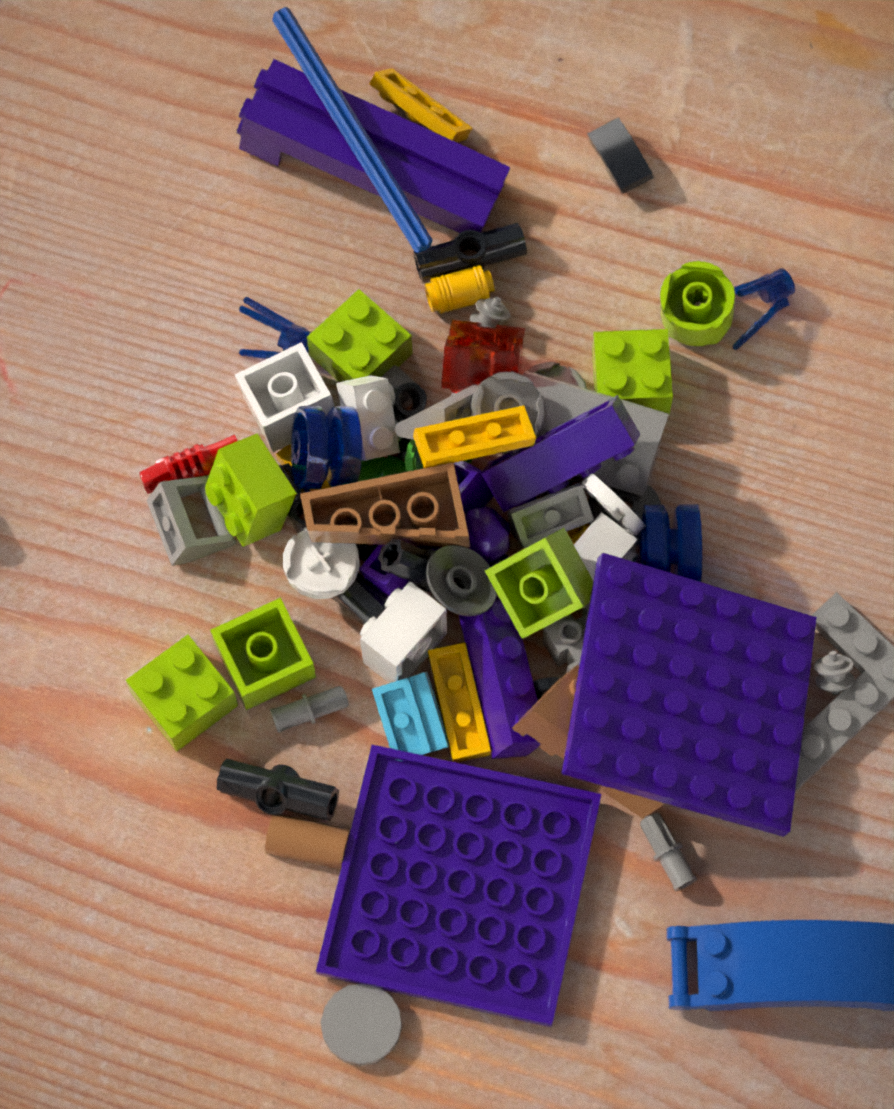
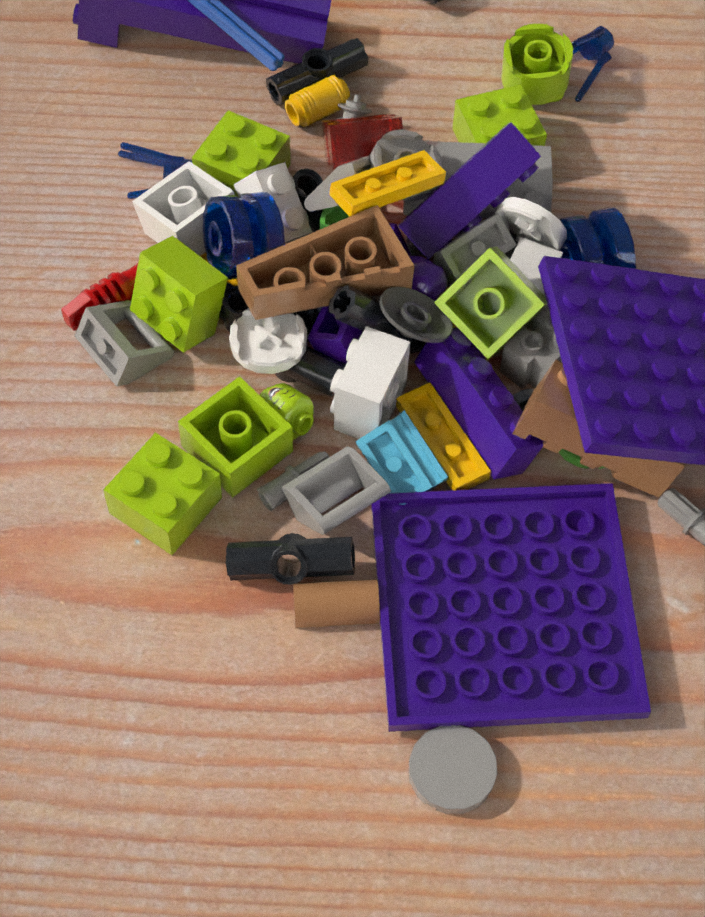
camera: 20 degrees left, 10 degrees down
(321, 635) = (292, 406): none -> lime head
(335, 724) = (331, 483): none -> light grey tile

